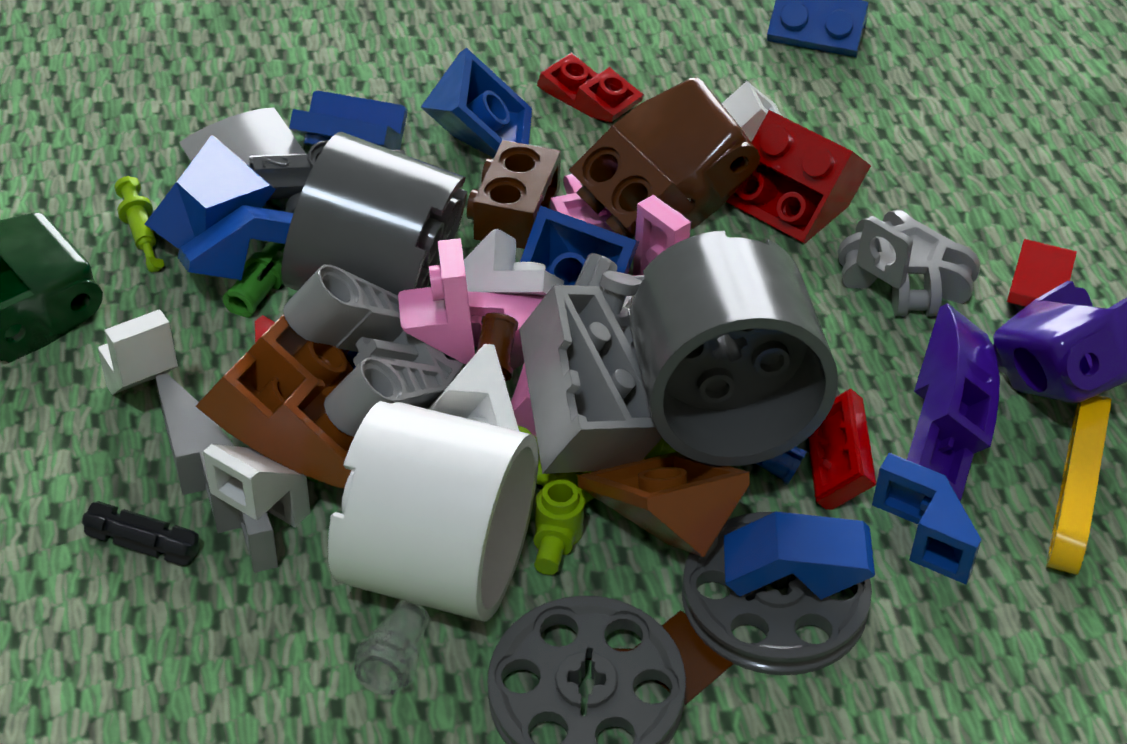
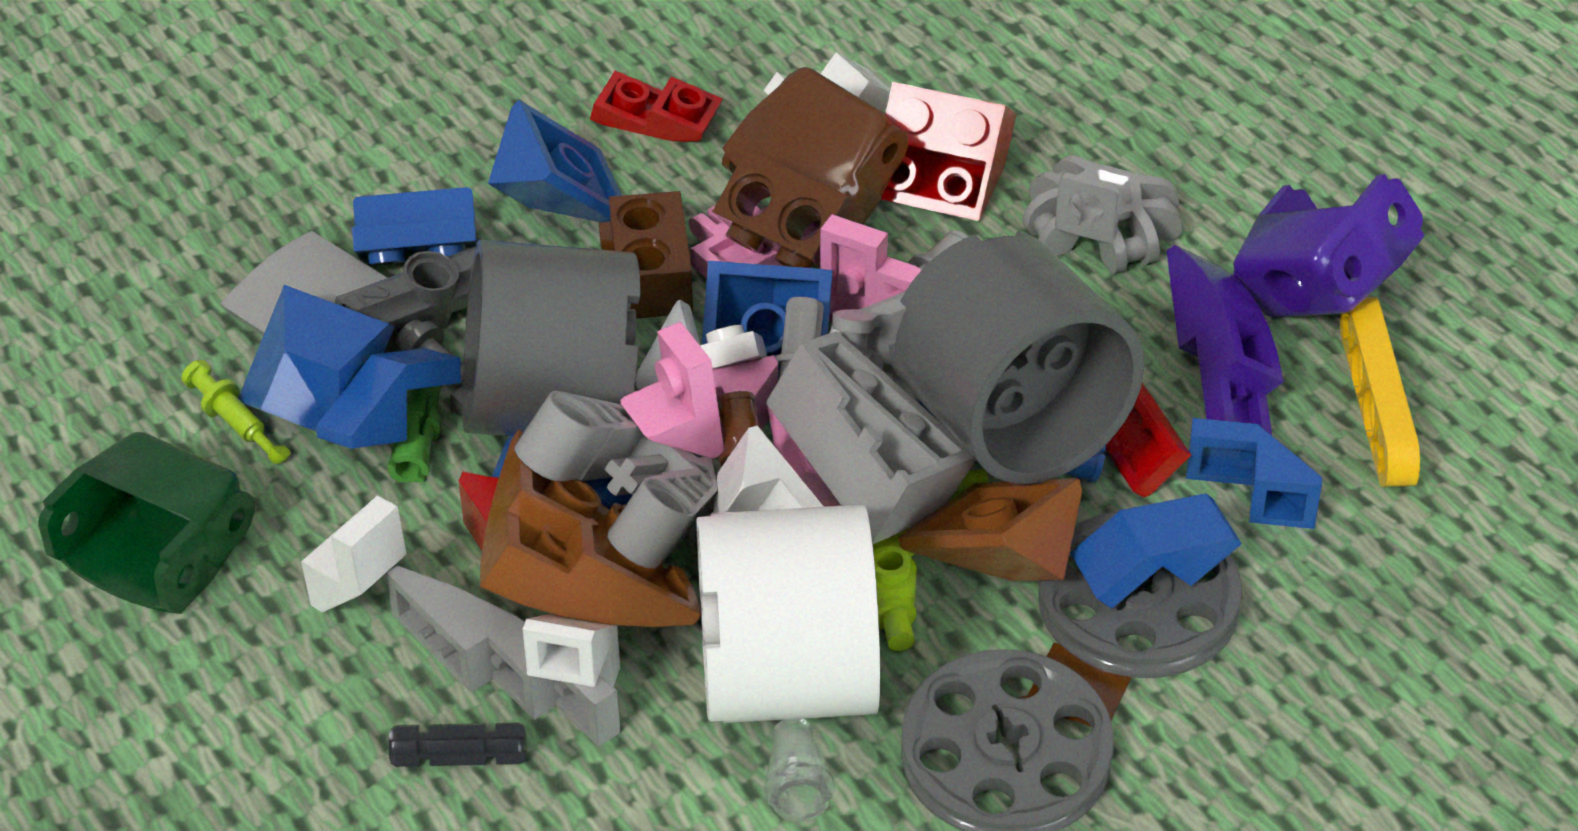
camera: 20 degrees left, 0 degrees up
(1039, 271) = (1243, 183): red slope -> none

